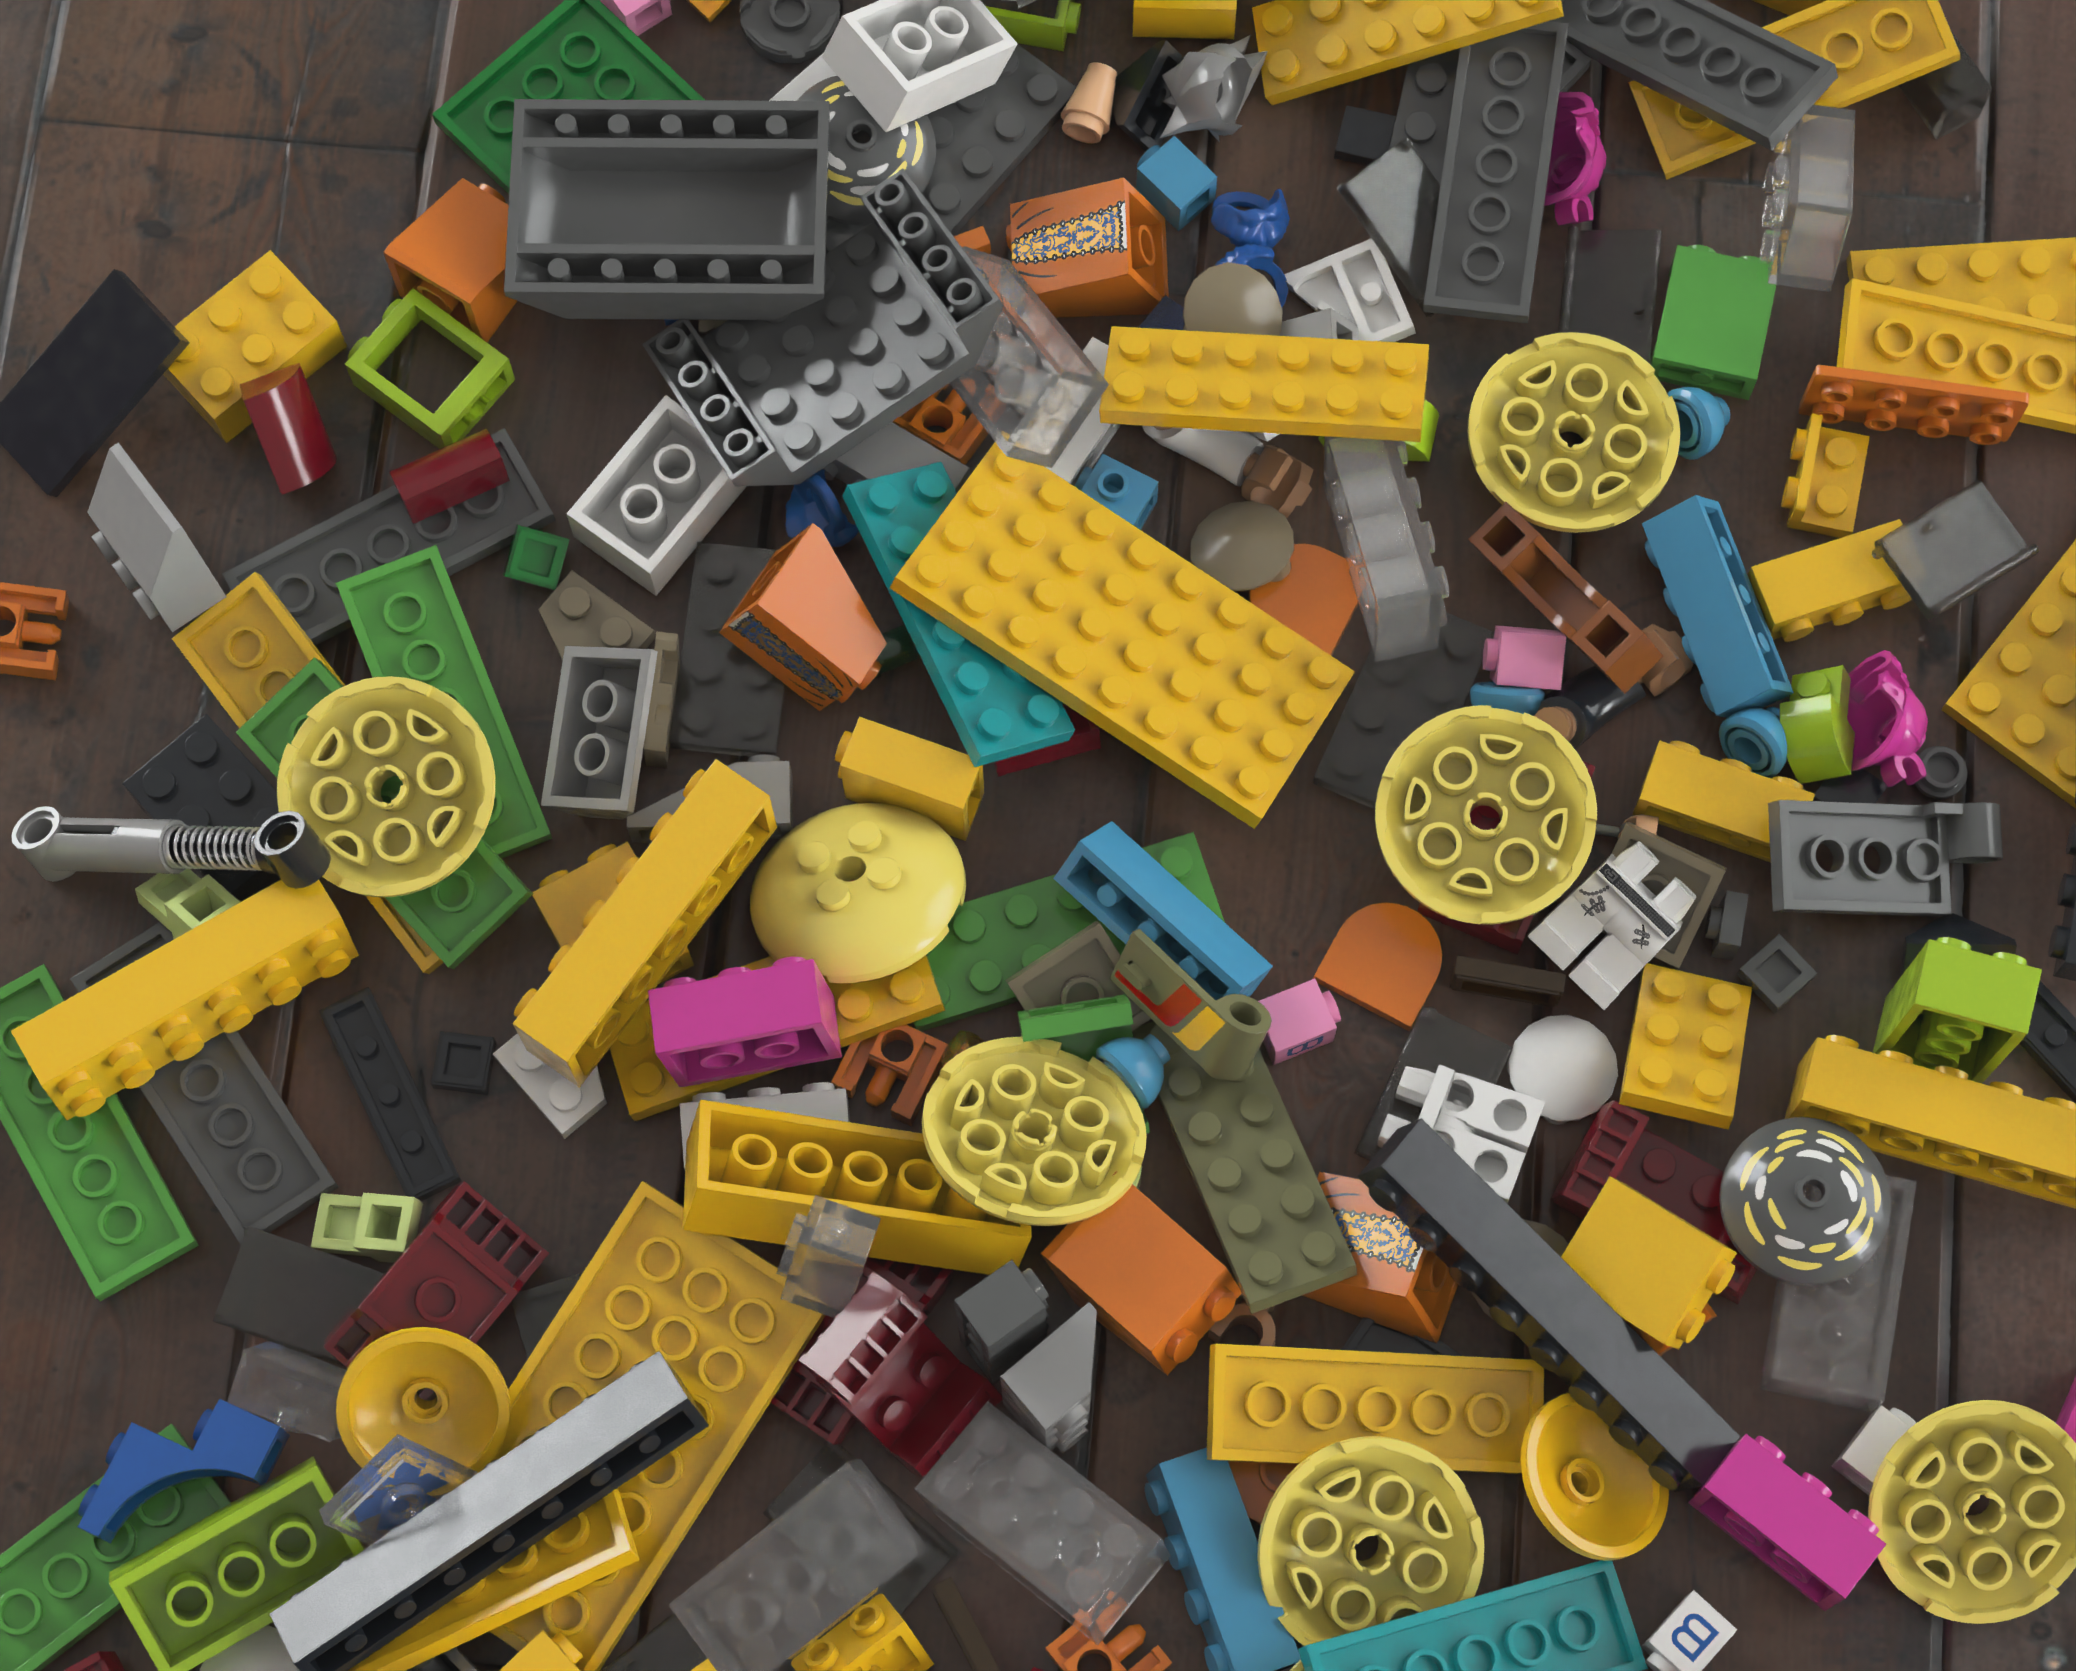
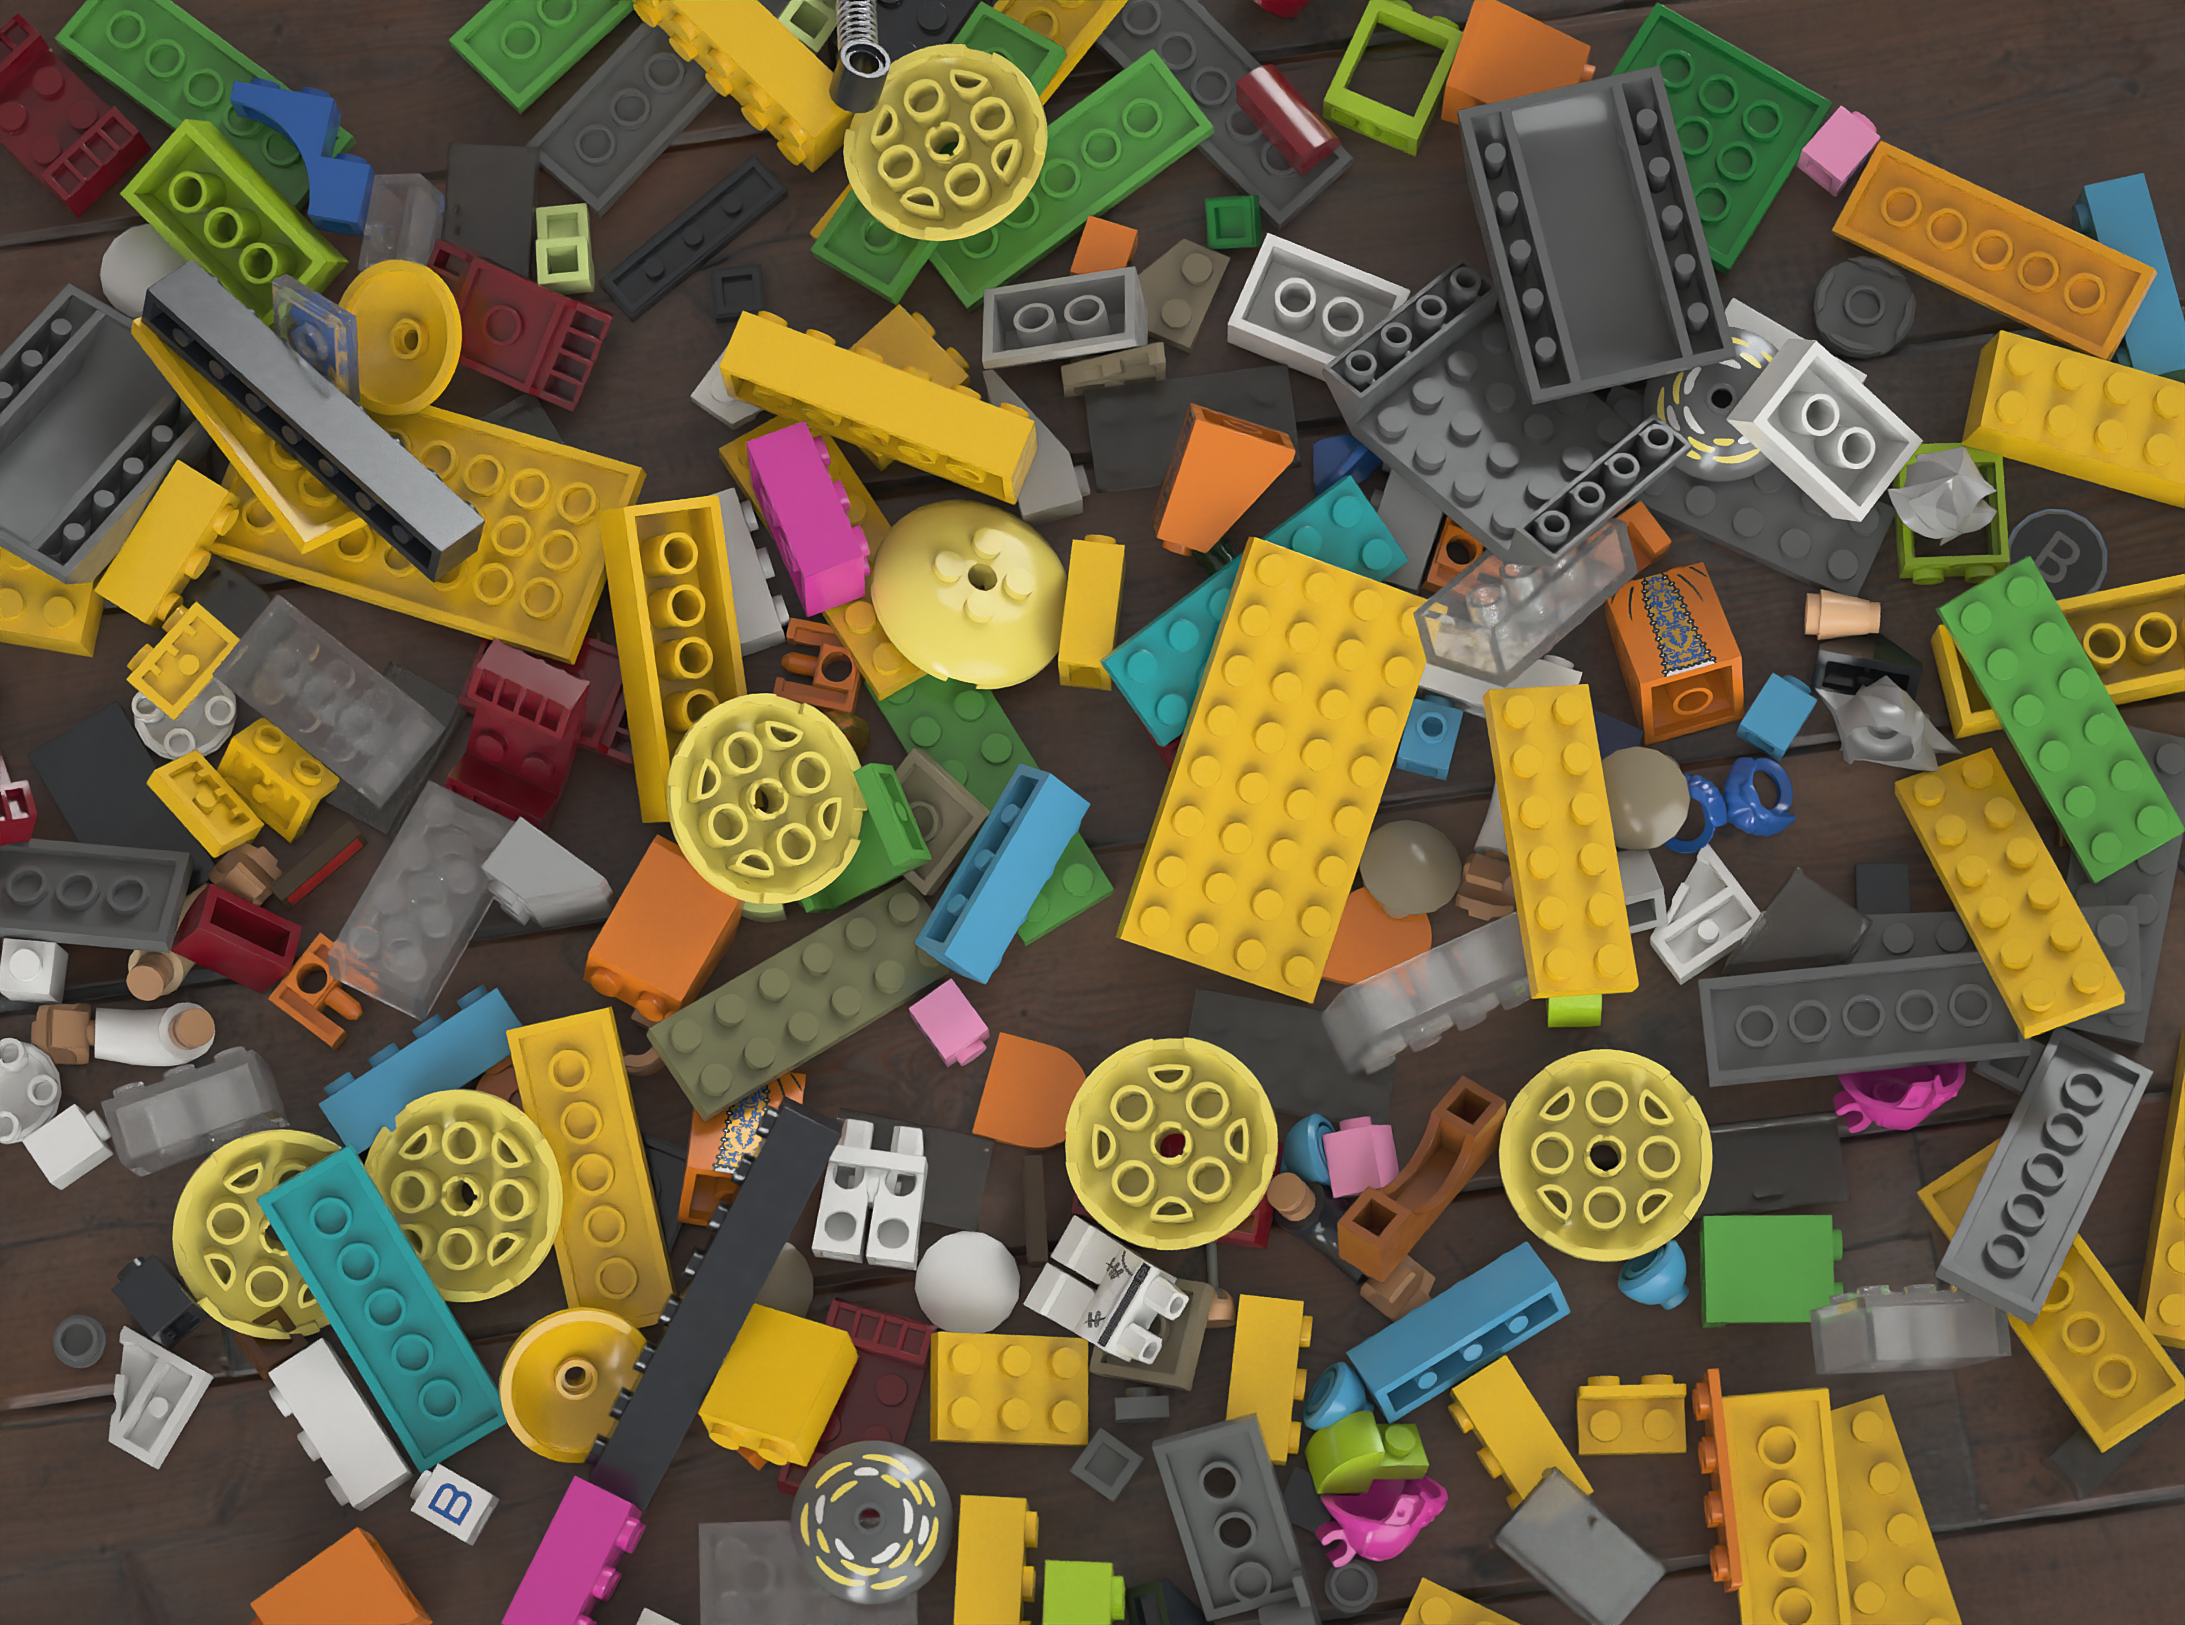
camera: 80 degrees right, 5 degrees up
(530, 687) = (1104, 247): none -> orange panel
(826, 1256) = (596, 640): clear brick -> none
(1002, 1319) = (583, 814): dark grey brick -> none
(1137, 1064) = (860, 882): dark azure brick -> none
(1216, 1033) = (899, 947): olive door -> none

